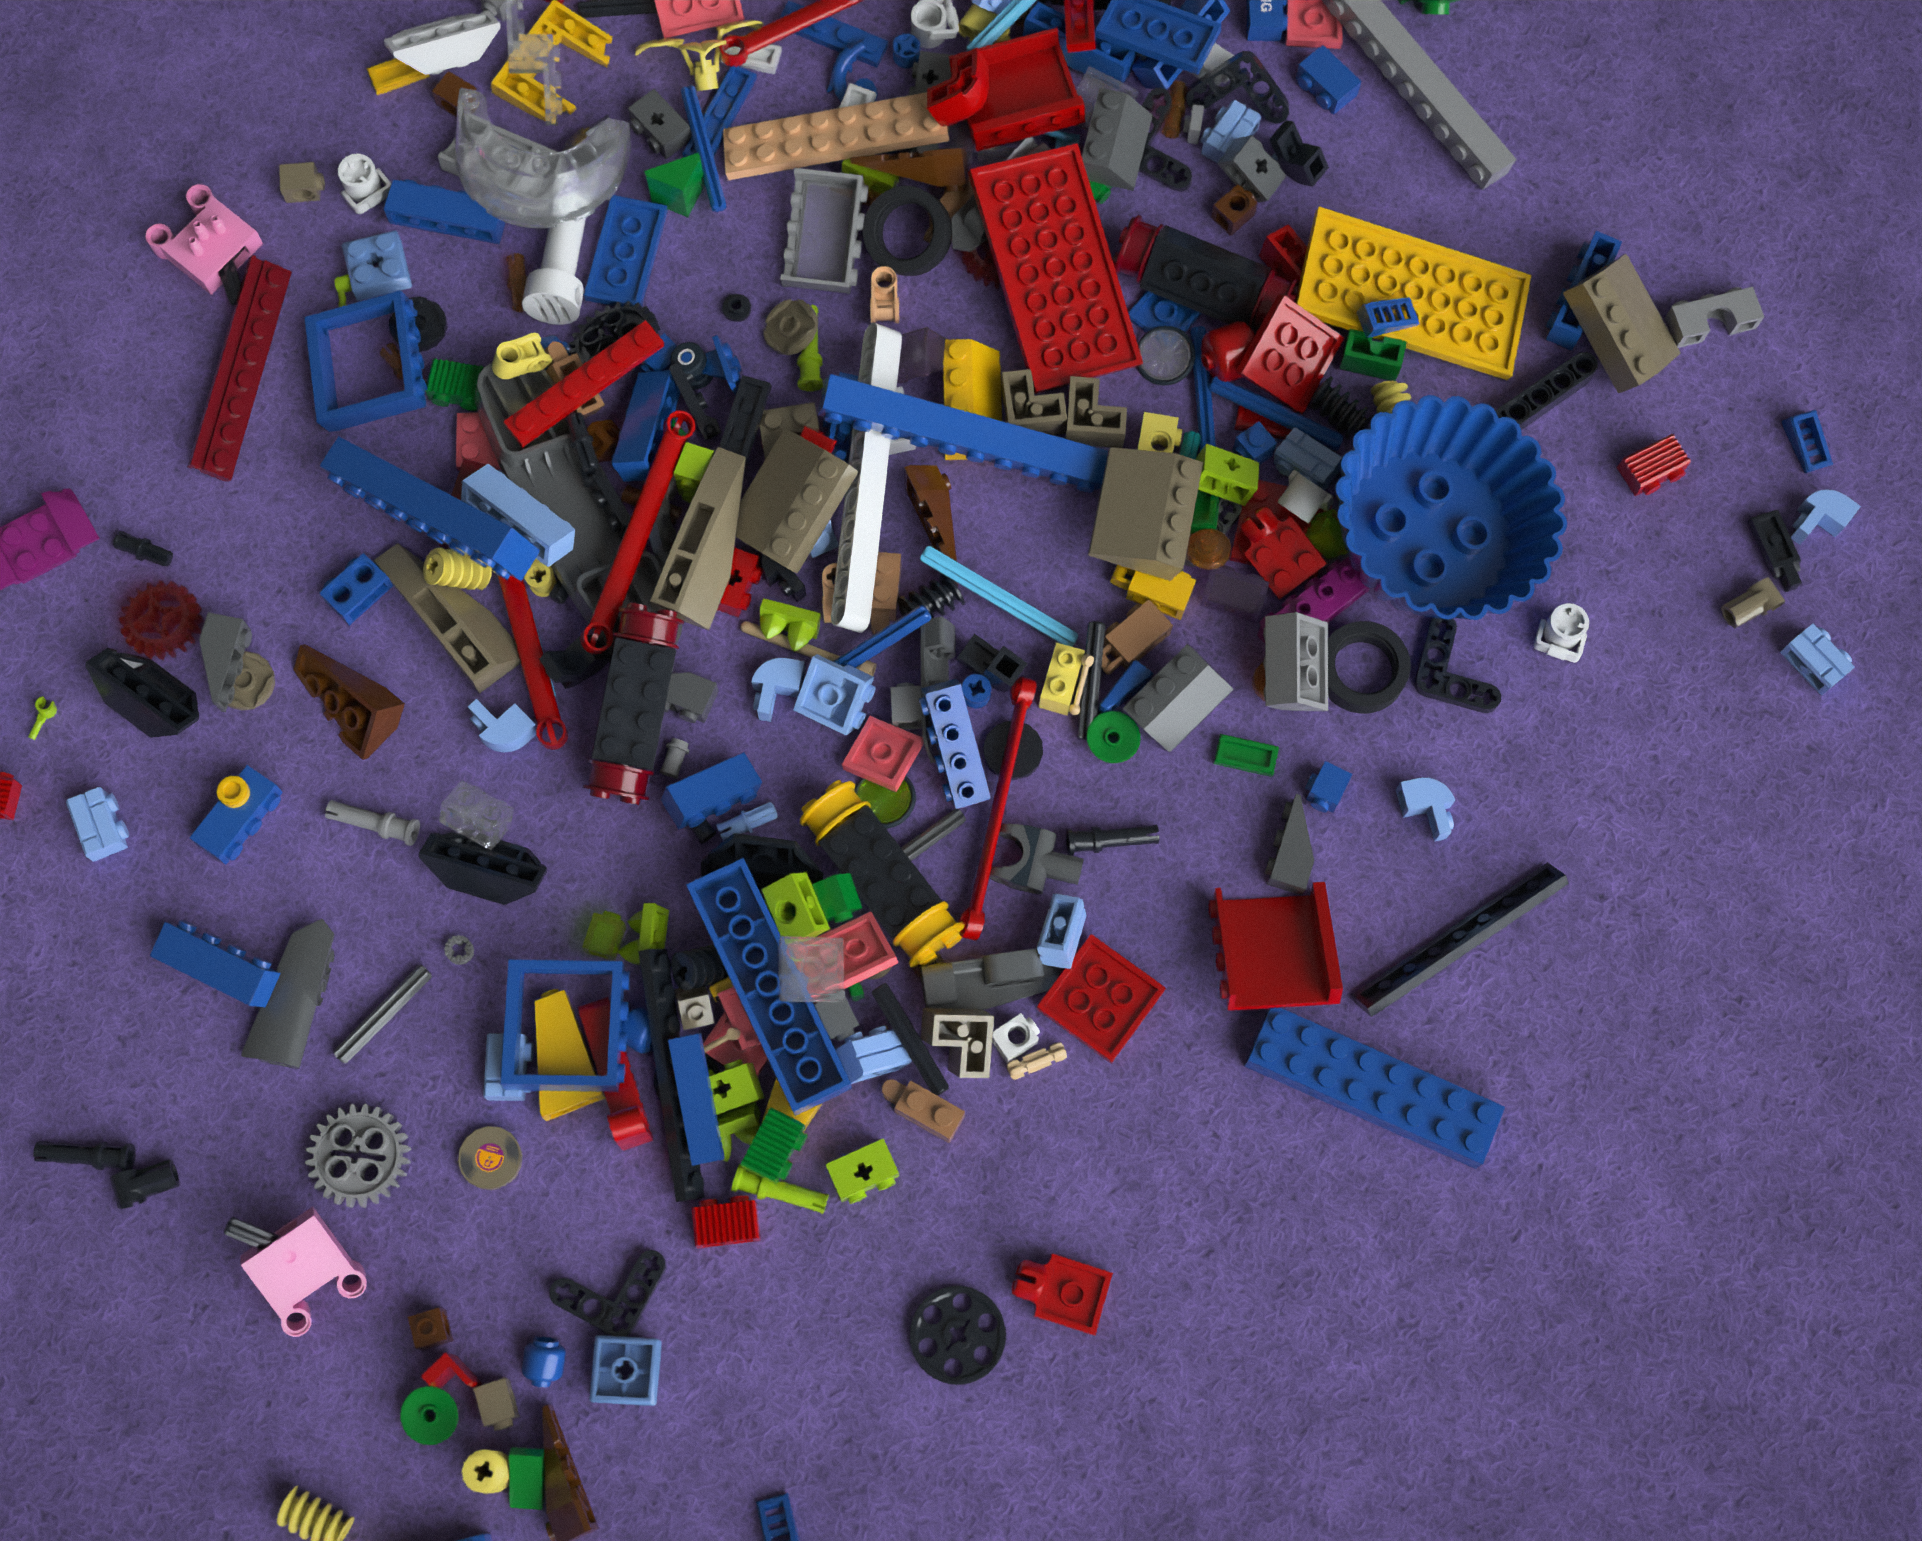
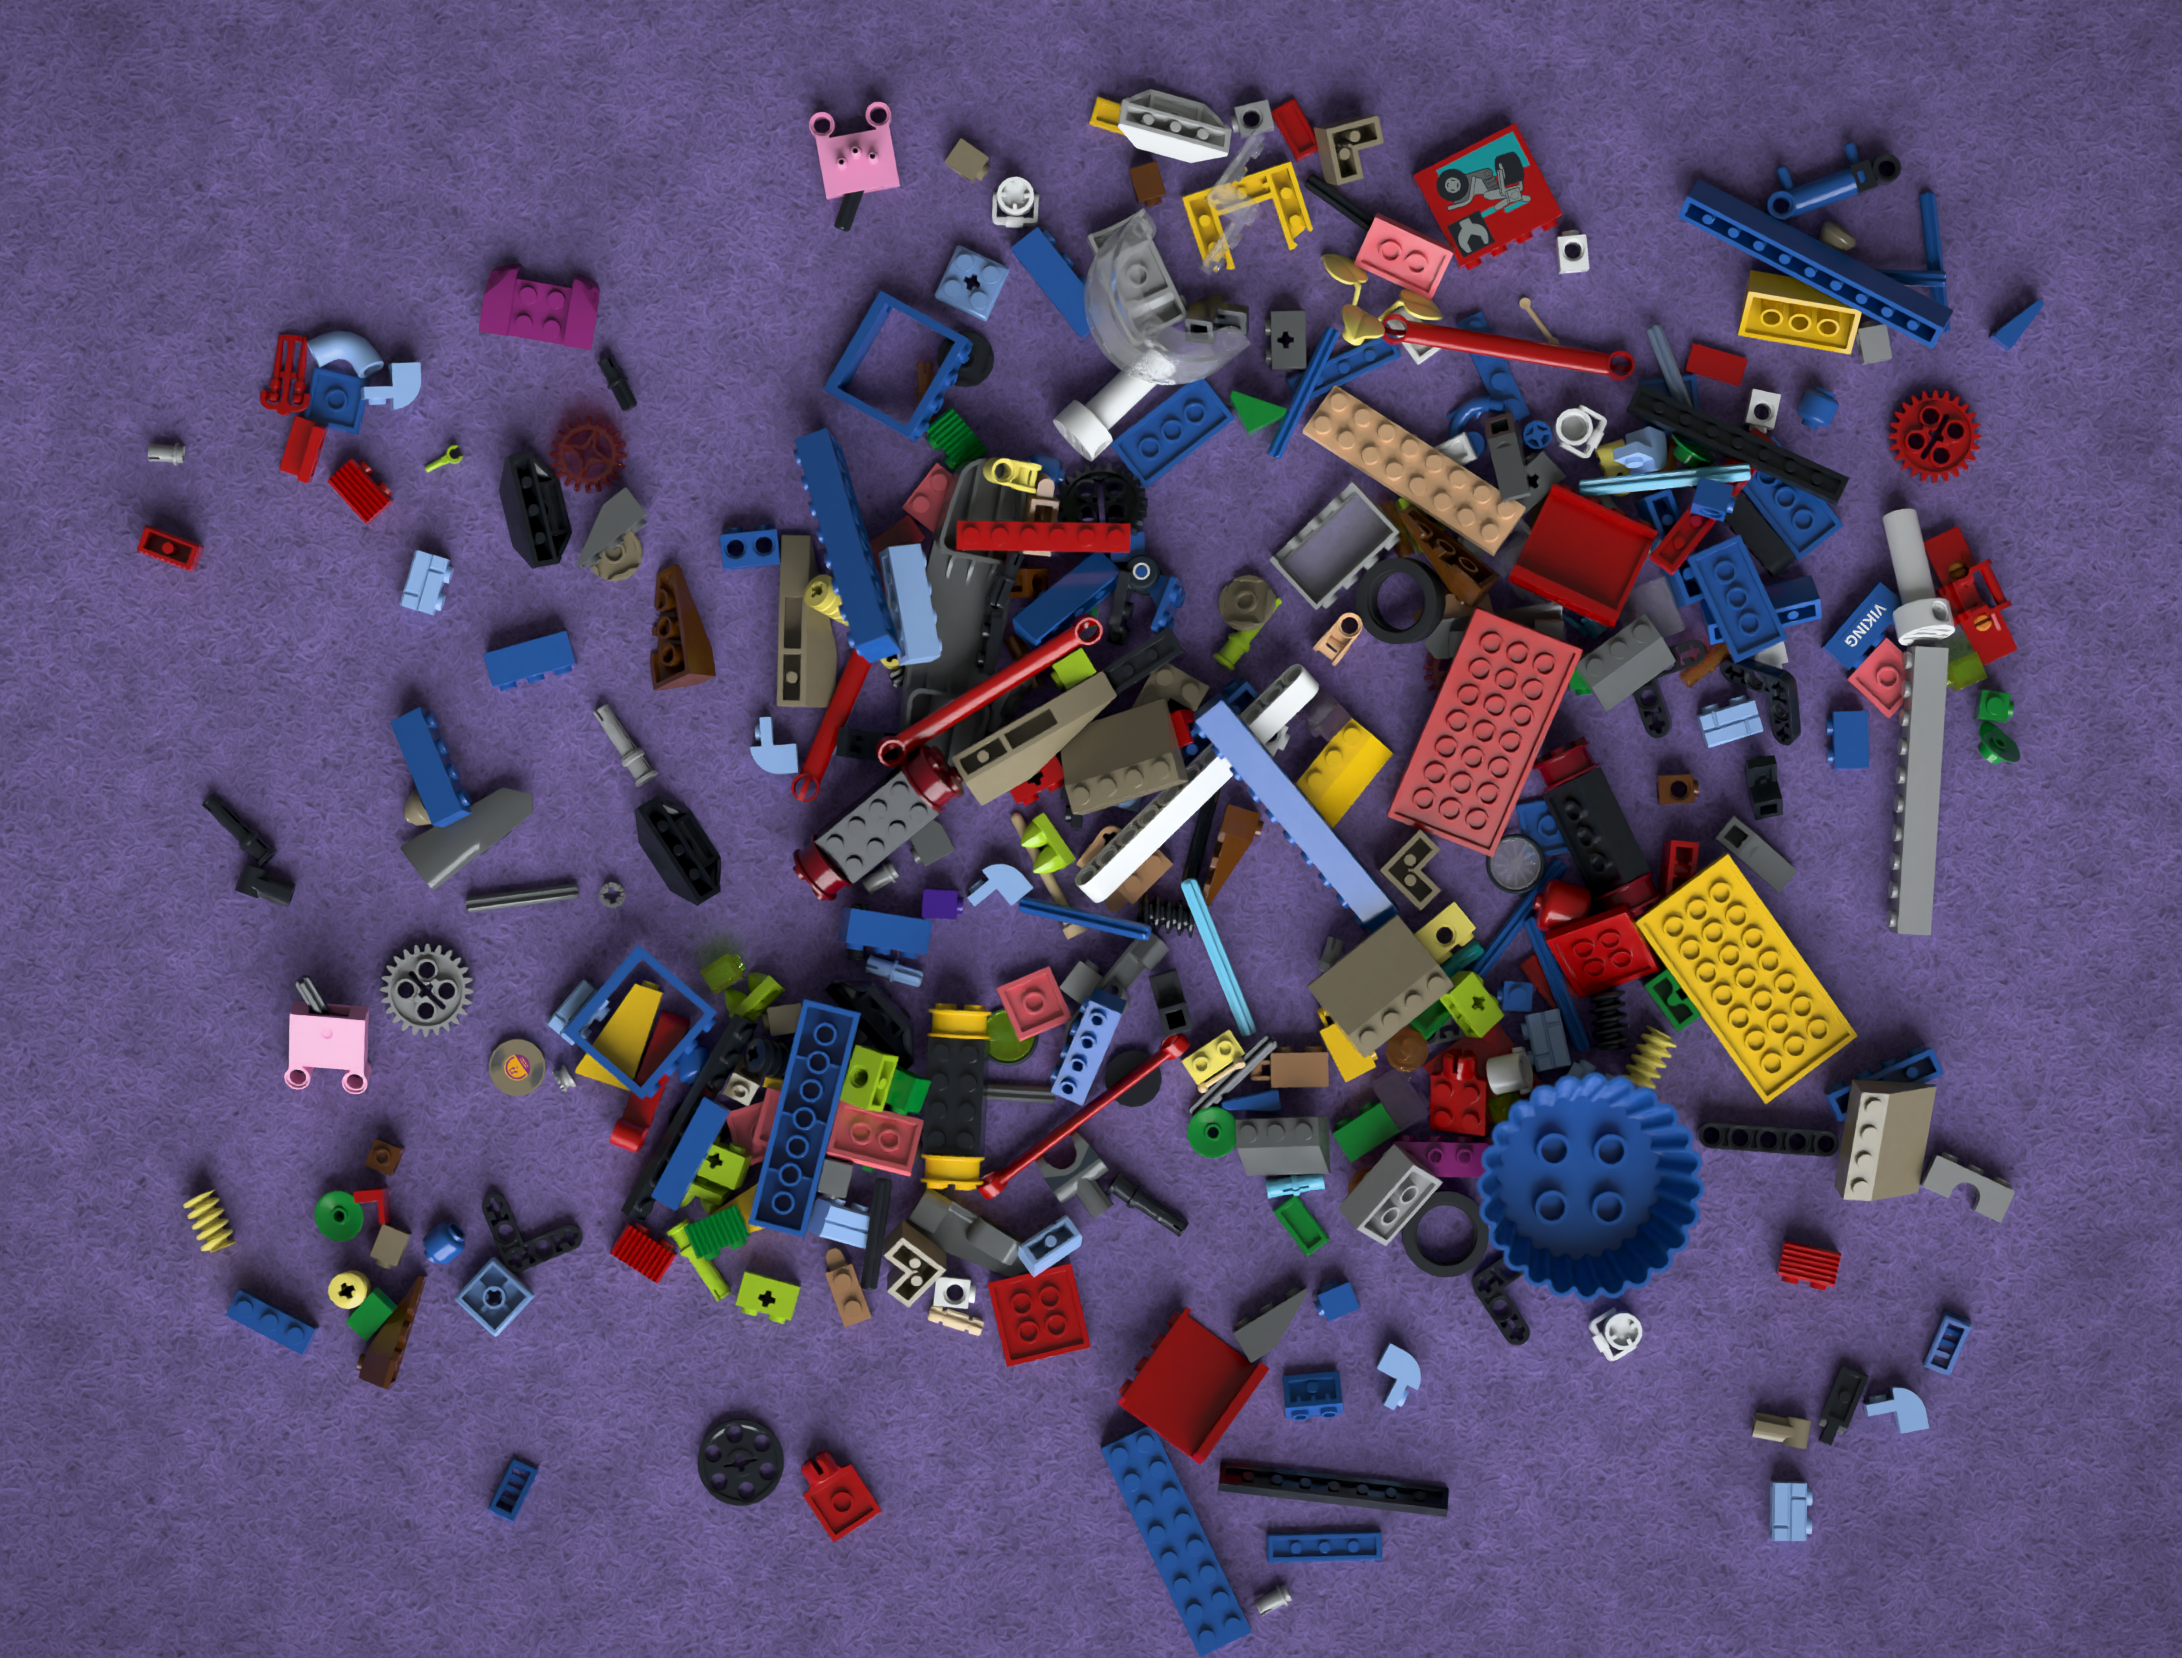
camera: 45 degrees right, 15 degrees up
(232, 1011) = (414, 810): none -> dark tan cone
(233, 791) = (540, 645): yellow tile -> none
(239, 369) = (801, 289): dark red plate -> none
(342, 286) = (933, 278): lime hand -> none
(476, 814) = (695, 807): clear brick -> none
(516, 280) = (1069, 387): clear orange pin -> none
(538, 1132) = (564, 1078): none -> light grey bush
(686, 930) = (782, 1019): none -> dark tan brick
(732, 1034) = (753, 1126): tan hinge -> none
(736, 314) = (1227, 556): black plate -> none
(741, 736) = (941, 904): none -> dark purple brick
(811, 969) = (842, 1134): clear plate -> none
(835, 695) = (1034, 932): light blue plate -> none
(896, 69) = (1507, 456): none -> dark grey slope
(904, 524) = (1200, 837): none -> black axle
(963, 93) = (1530, 529): red brick -> none
(976, 698) = (1139, 1012): blue wheel -> none
(1024, 409) = (1364, 827): dark tan brick -> none
(1083, 531) = (1330, 955): none -> light grey pin
(1193, 124) = (1708, 689): light grey plate -> none
(1213, 726) = (1294, 1184): none -> medium azure pin
(1232, 639) = (1365, 1131): none -> green brick
(1252, 168) = (1715, 770): dark grey brick -> none
(1311, 196) = (1754, 853): none -> dark grey slope
(1372, 328) = (1682, 977): blue slope -> none
(1376, 878) = (1312, 1395): none -> blue bracket
(1494, 993) = (1324, 1546): none -> blue tile
(1495, 1070) = (1273, 1600): none -> light grey pin

